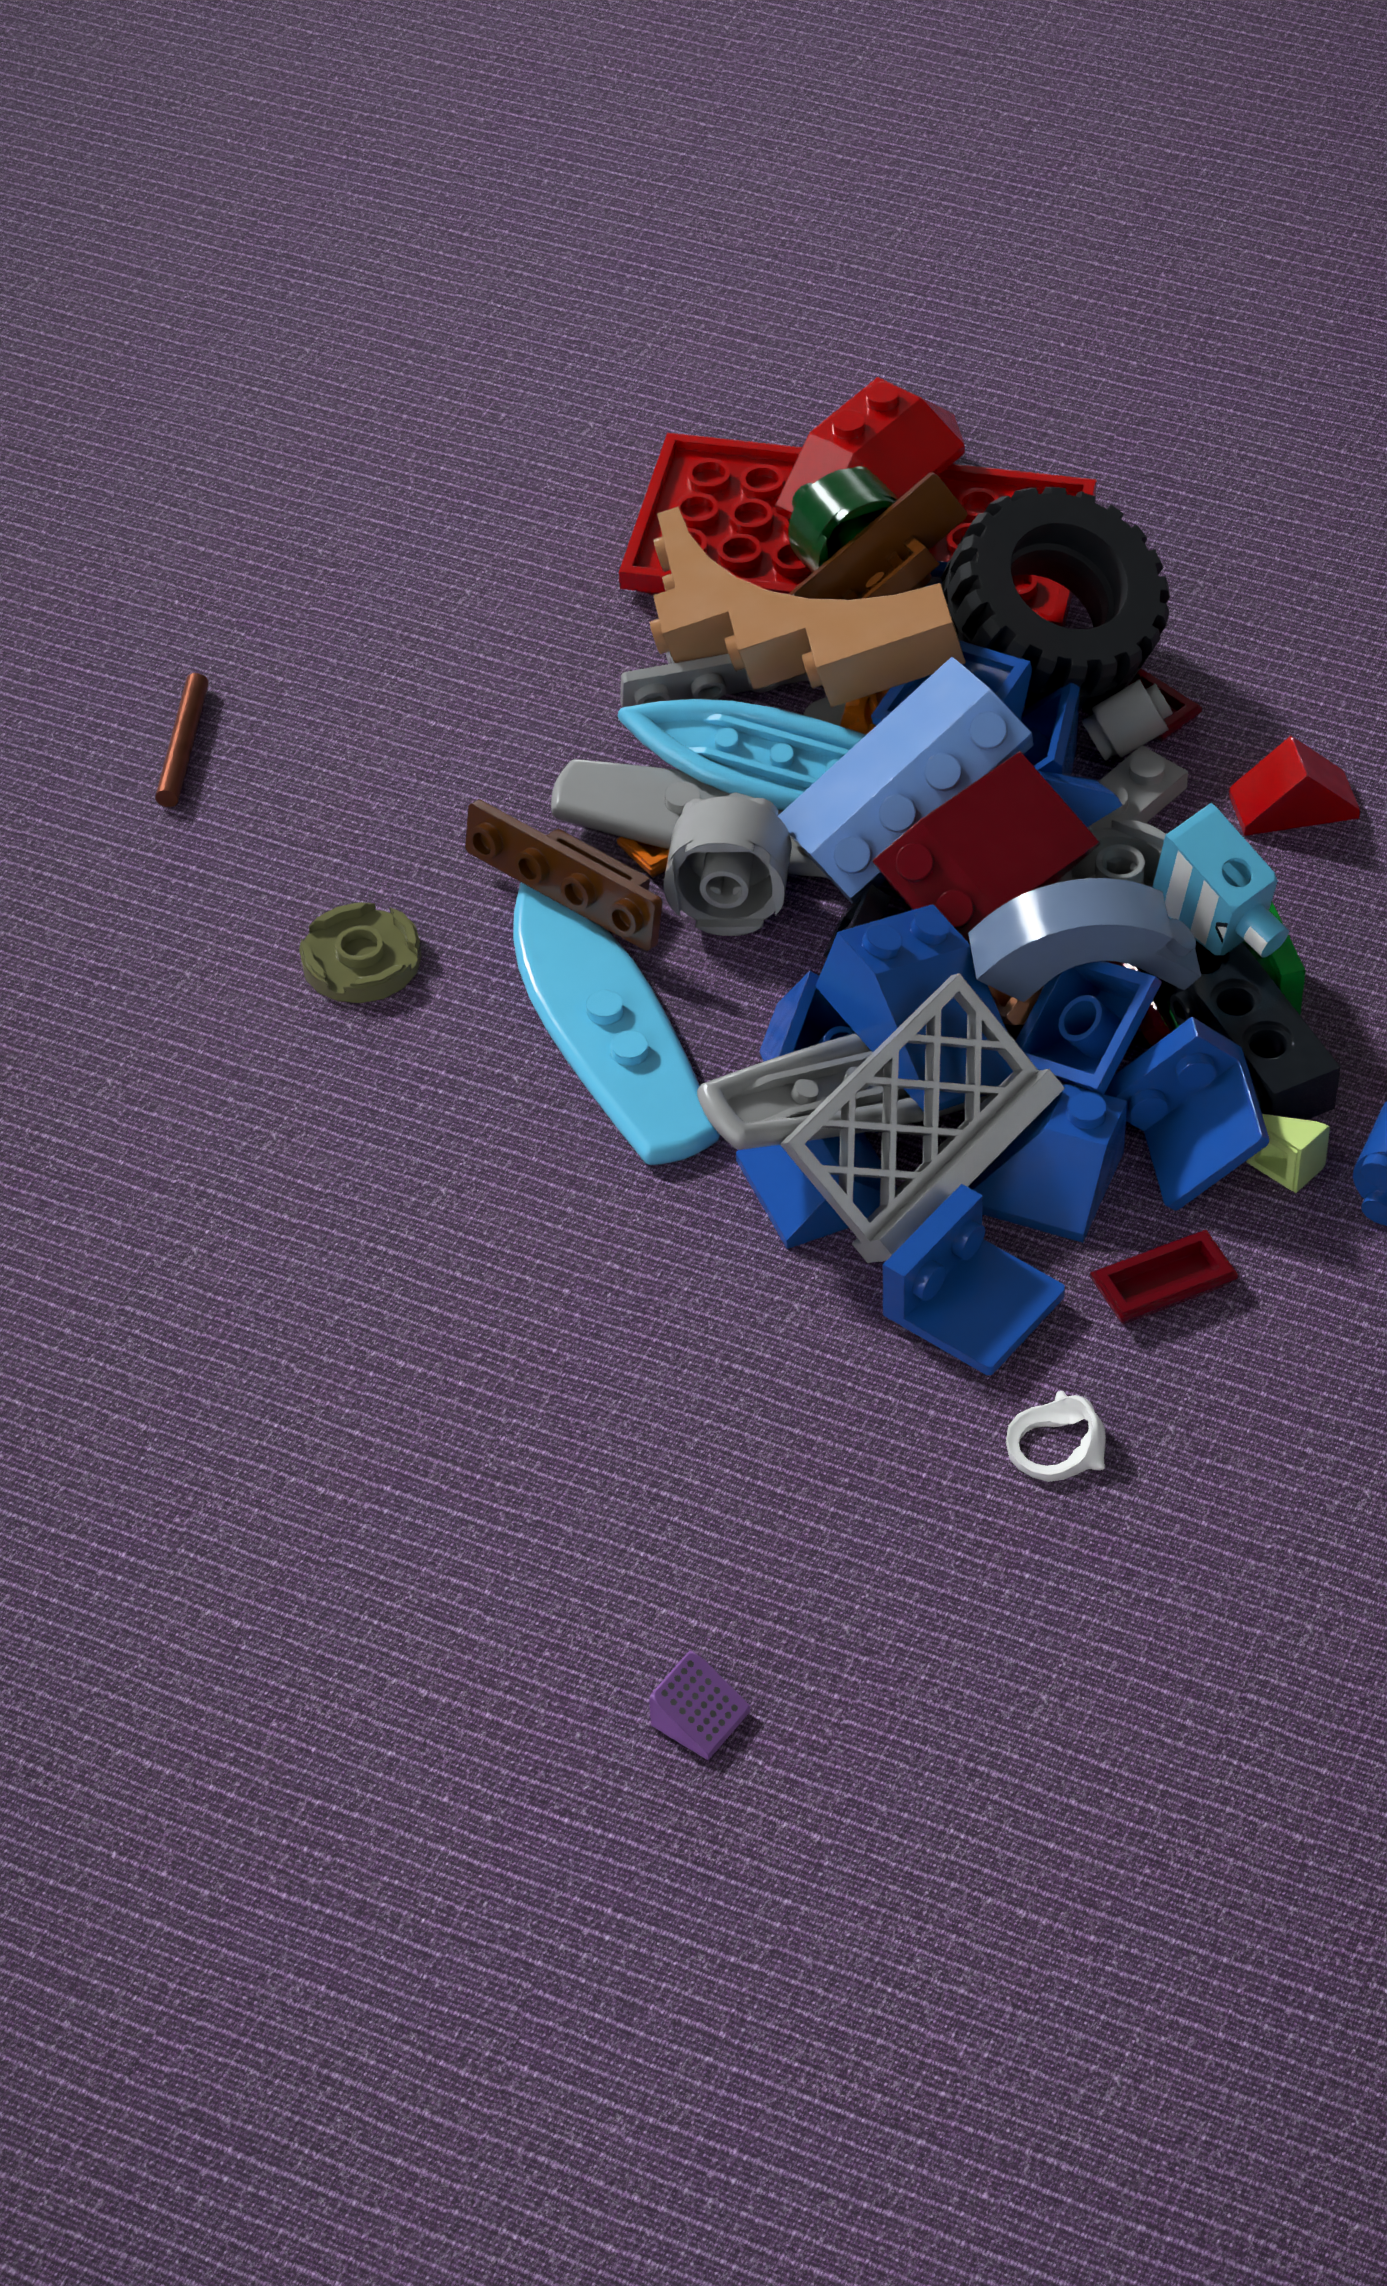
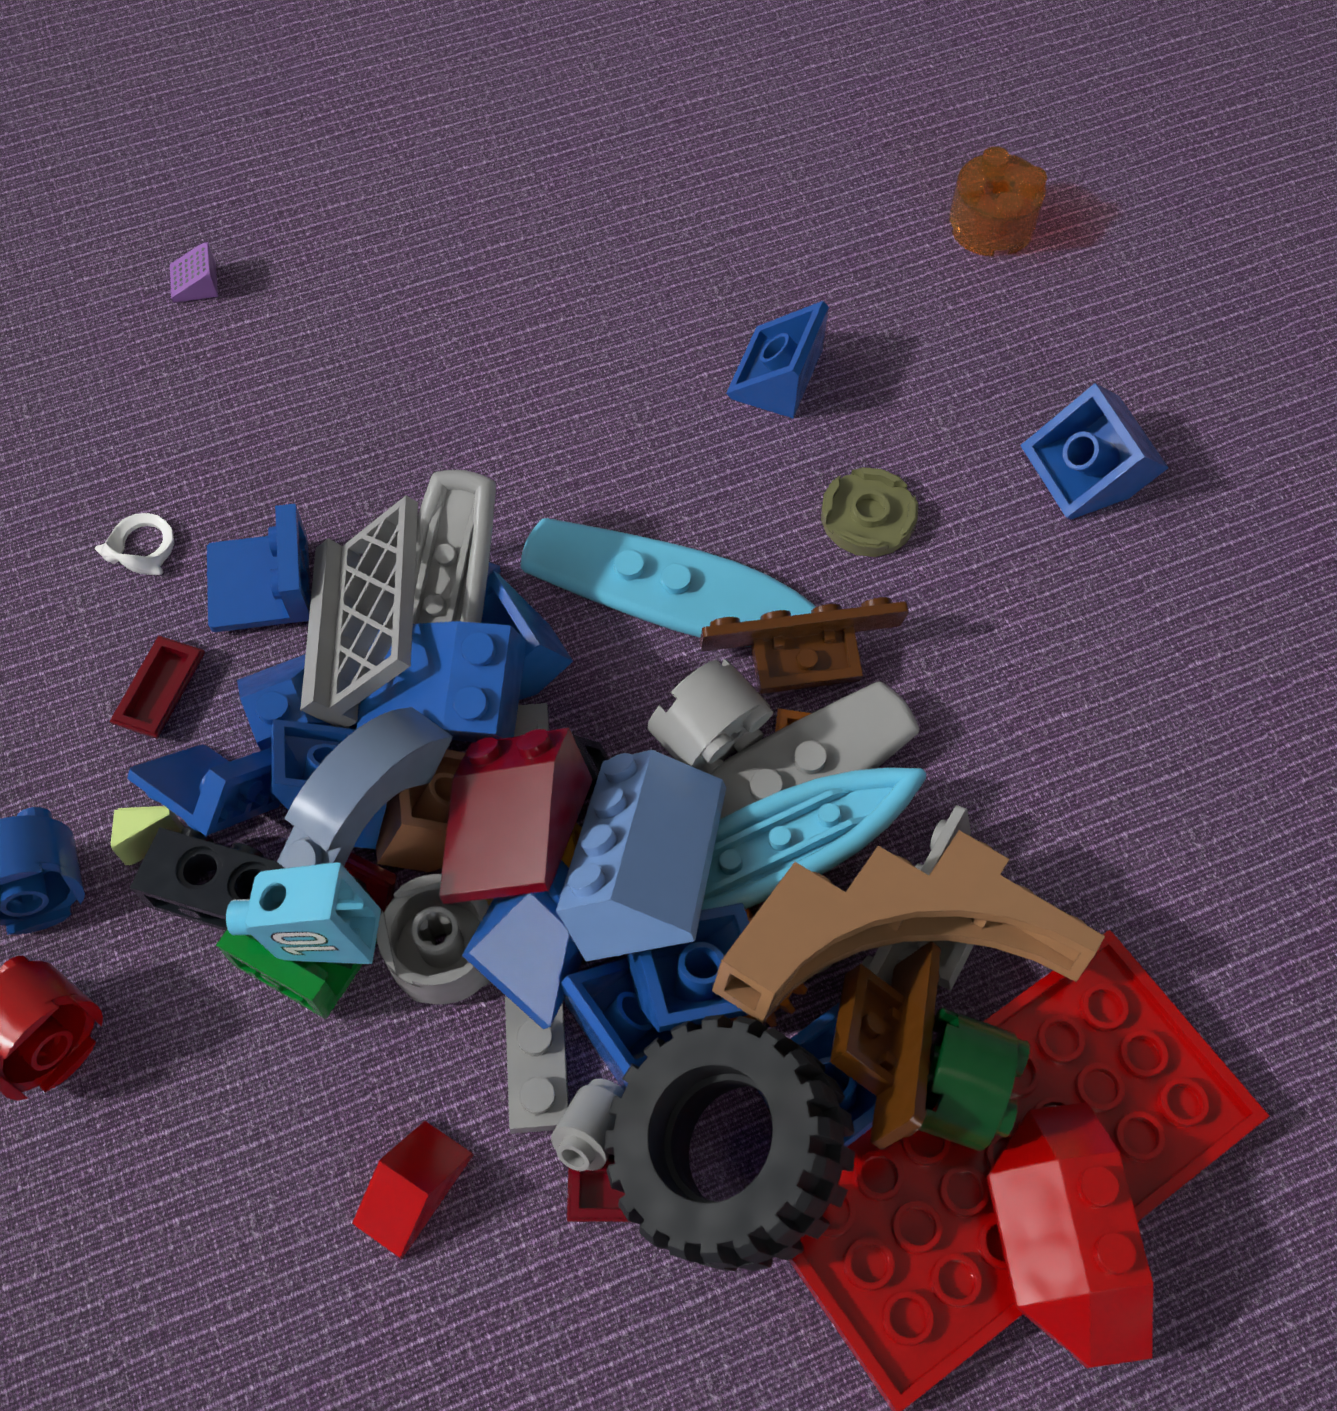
camera: 130 degrees right, 15 degrees up
(123, 833) = (1093, 453): none -> blue slope
(182, 740) = (1175, 558): copper bar -> none
(248, 1104) = (781, 361): none -> blue slope

